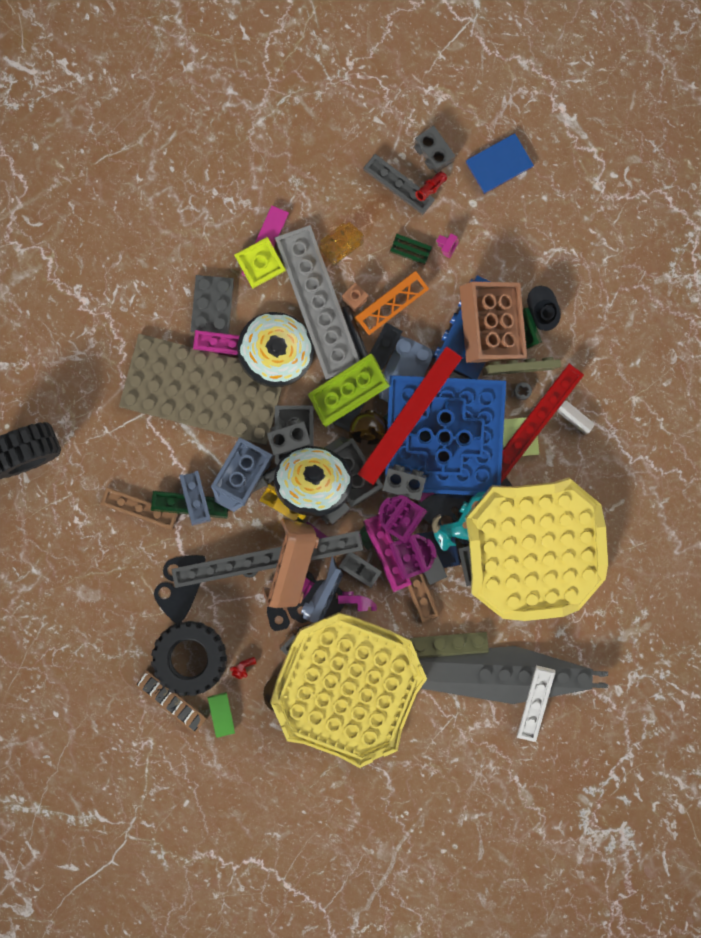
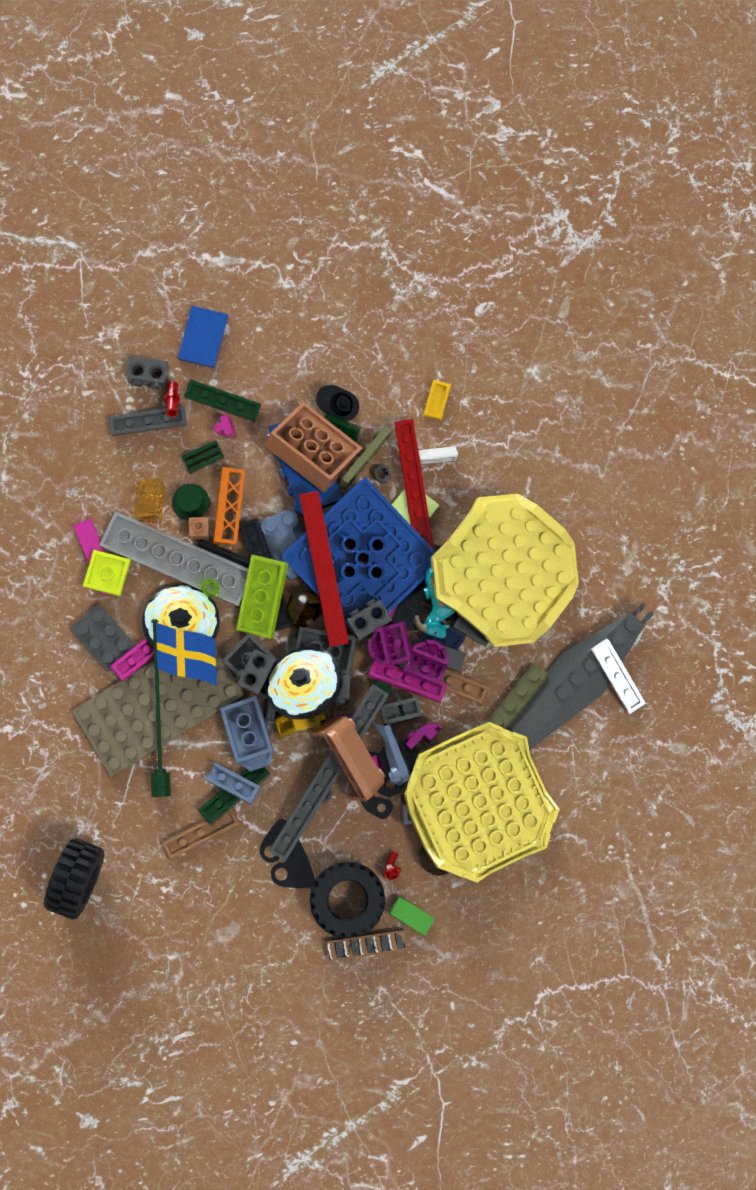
camera: 50 degrees left, 5 degrees down
(251, 375) = (182, 655): none -> flag
(324, 349) = (204, 589): none -> clear neon green bush
(369, 272) = (190, 501): none -> dark green piece
(465, 223) = (222, 400): none -> dark green tile
(616, 378) = (437, 400): none -> yellow tile

